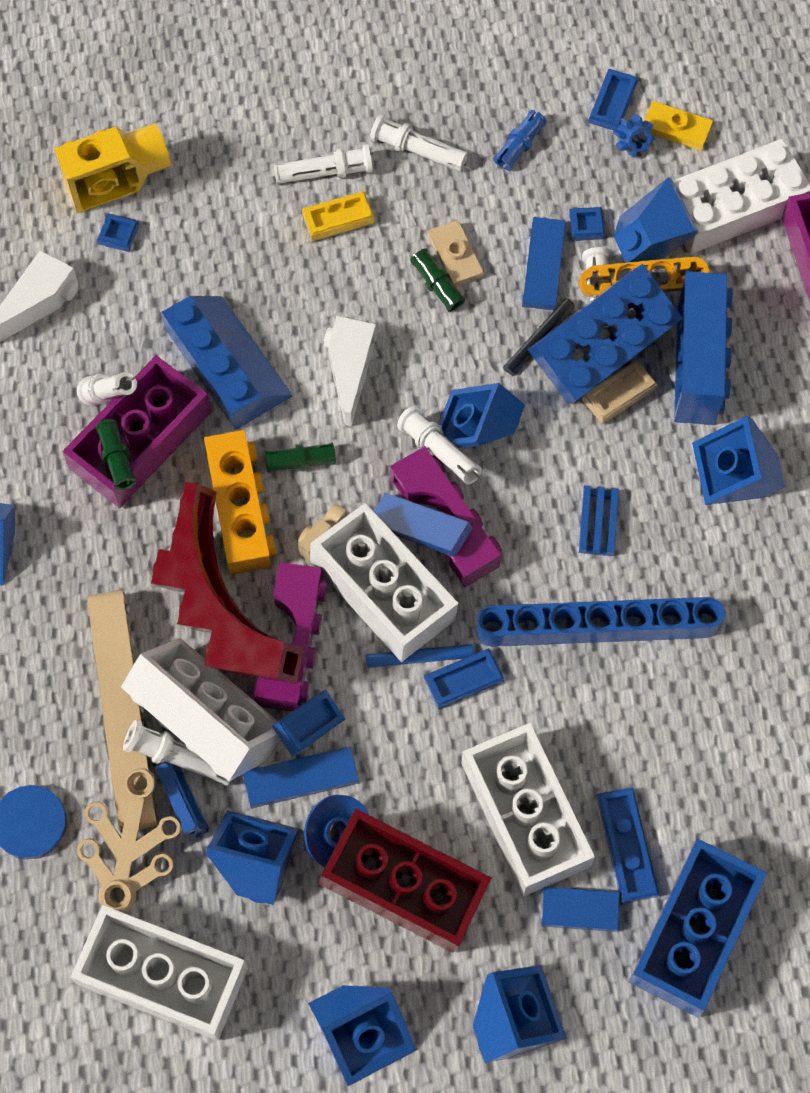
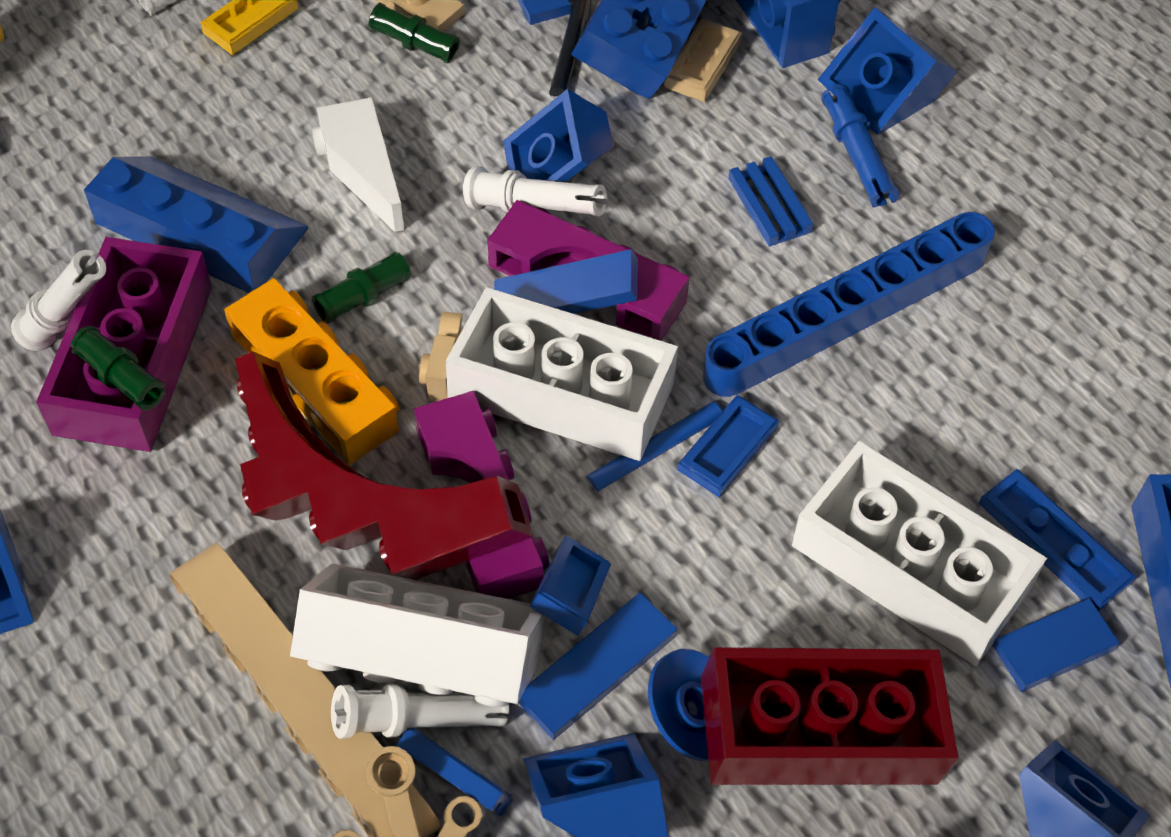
camera: 30 degrees left, 10 degrees down
(686, 495) = (852, 129): none -> blue pin

